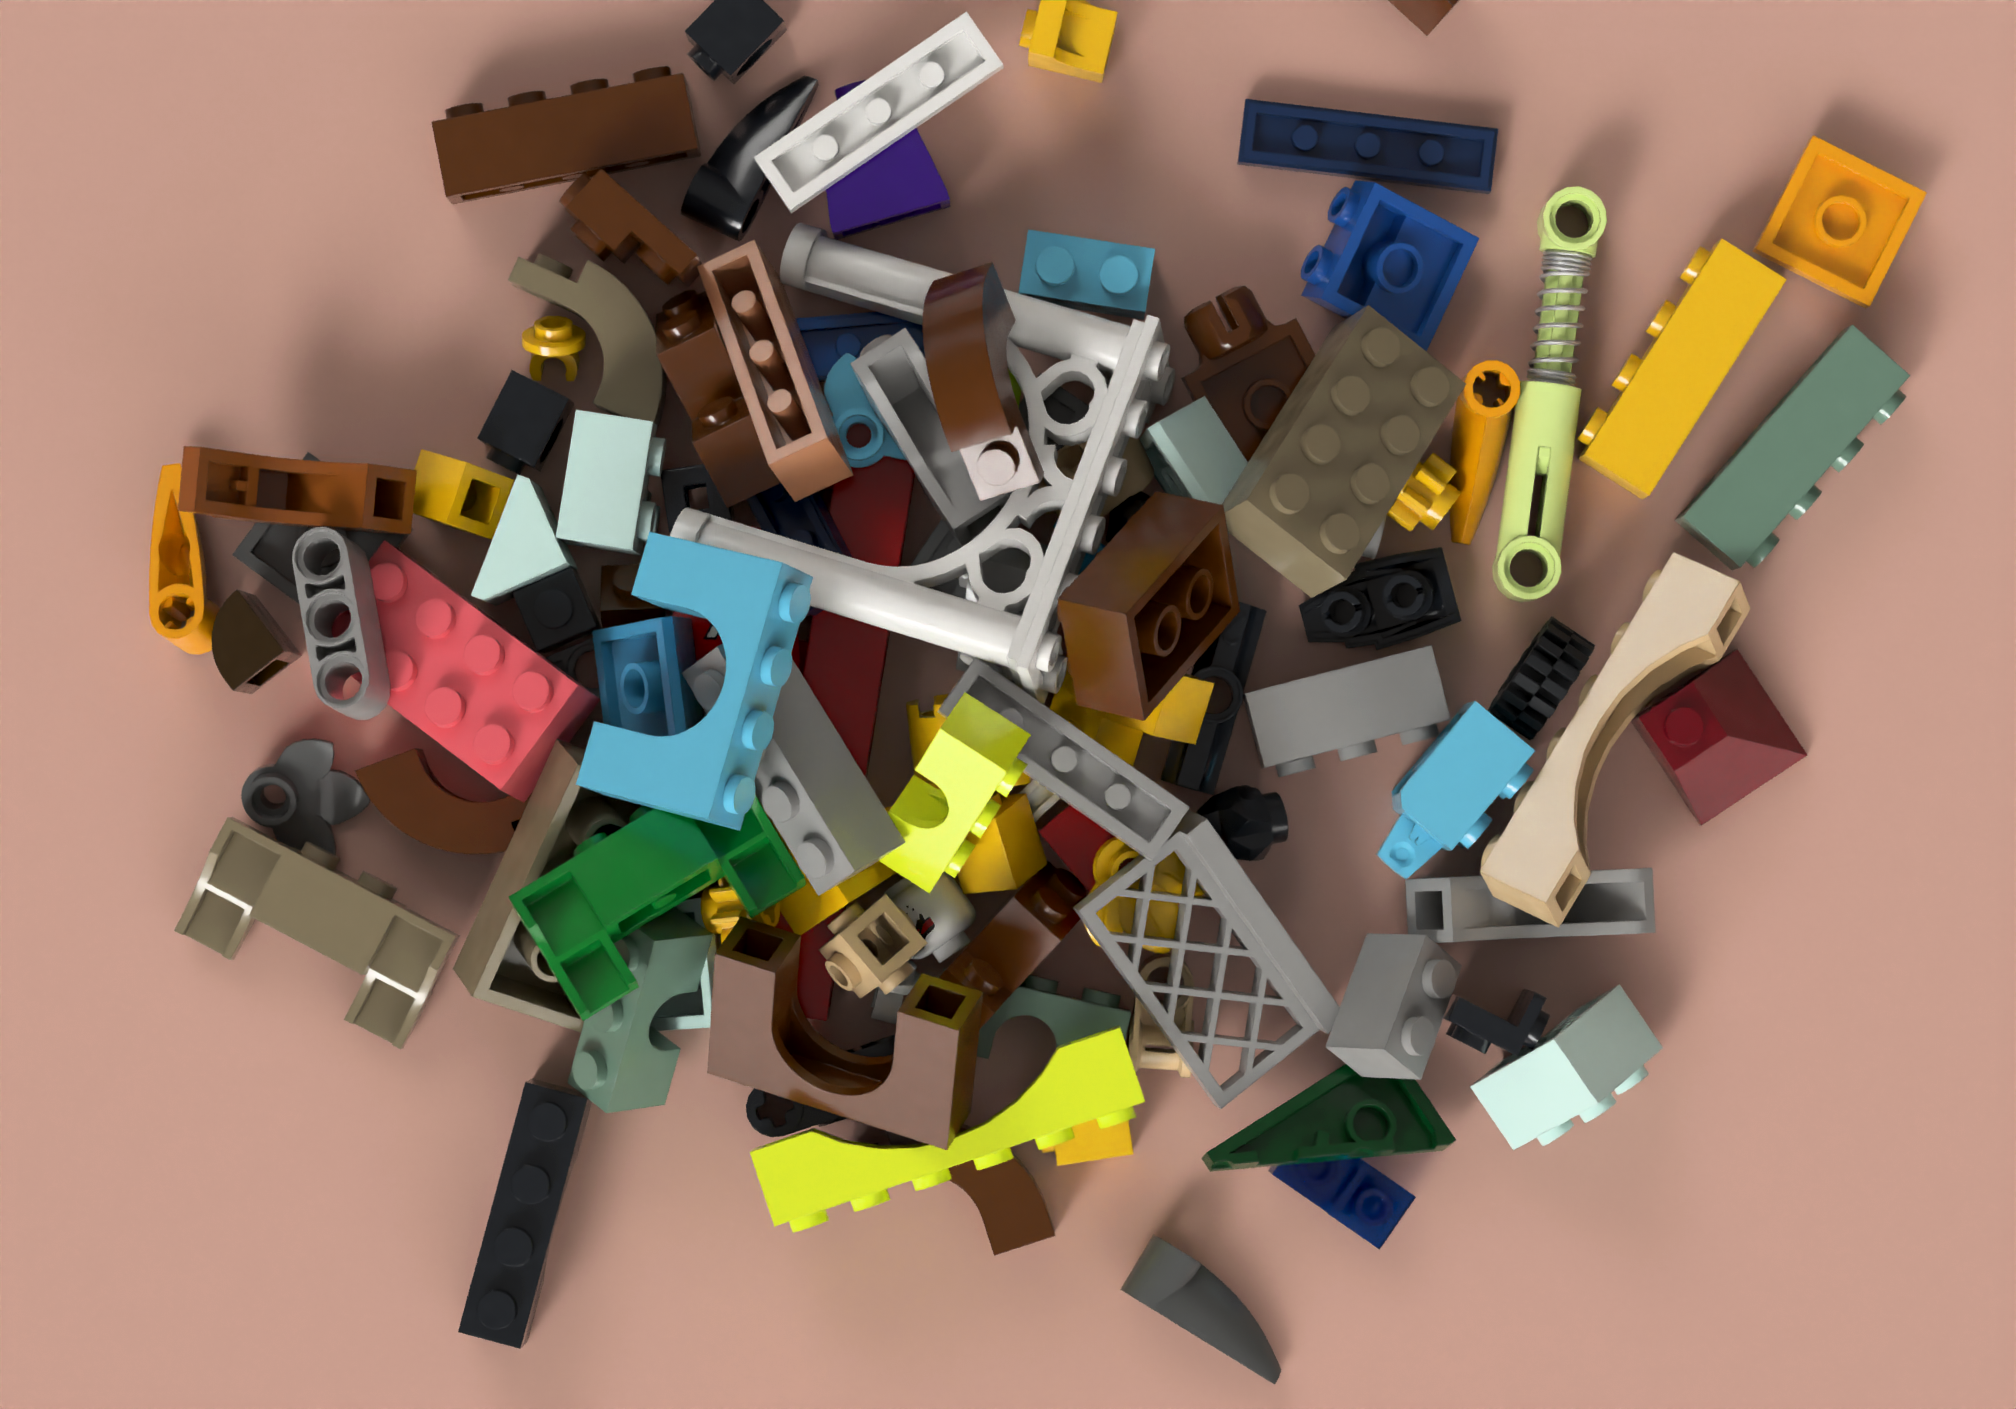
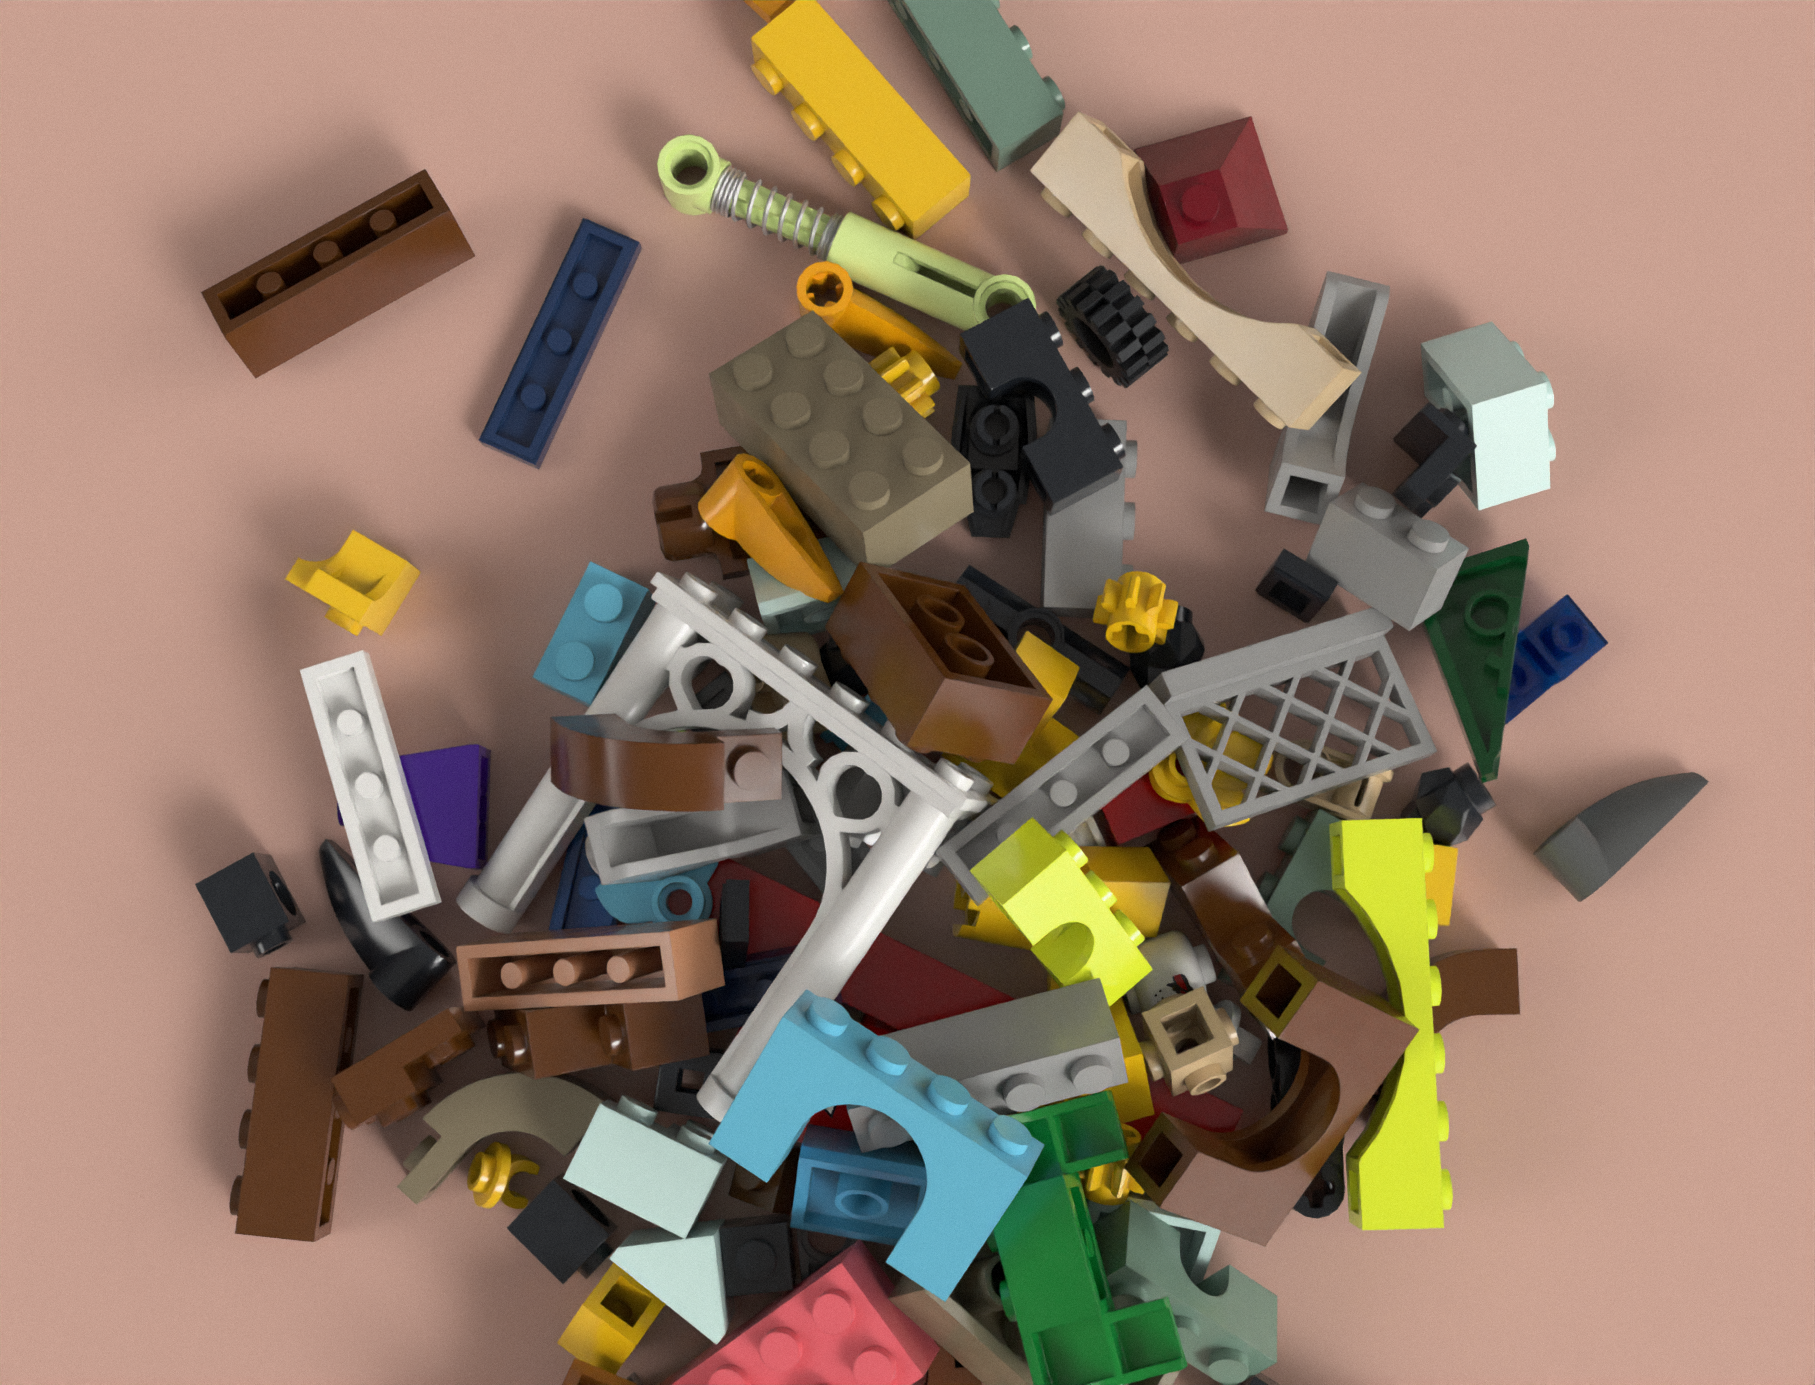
camera: 80 degrees left, 5 degrees down
(854, 492) = (734, 923): none -> black tile
(1172, 1136) = (1449, 804): none -> black rock
(1249, 394) = (759, 513): none -> light orange piece
(1262, 780) = (1135, 611): none -> yellow gear
(1342, 932) = (1296, 586): none -> black tile
(1387, 258) = (666, 349): blue plate -> none
(1452, 786) = (1192, 435): medium azure hinge -> none
(1478, 595) = (1021, 355): none -> black arch

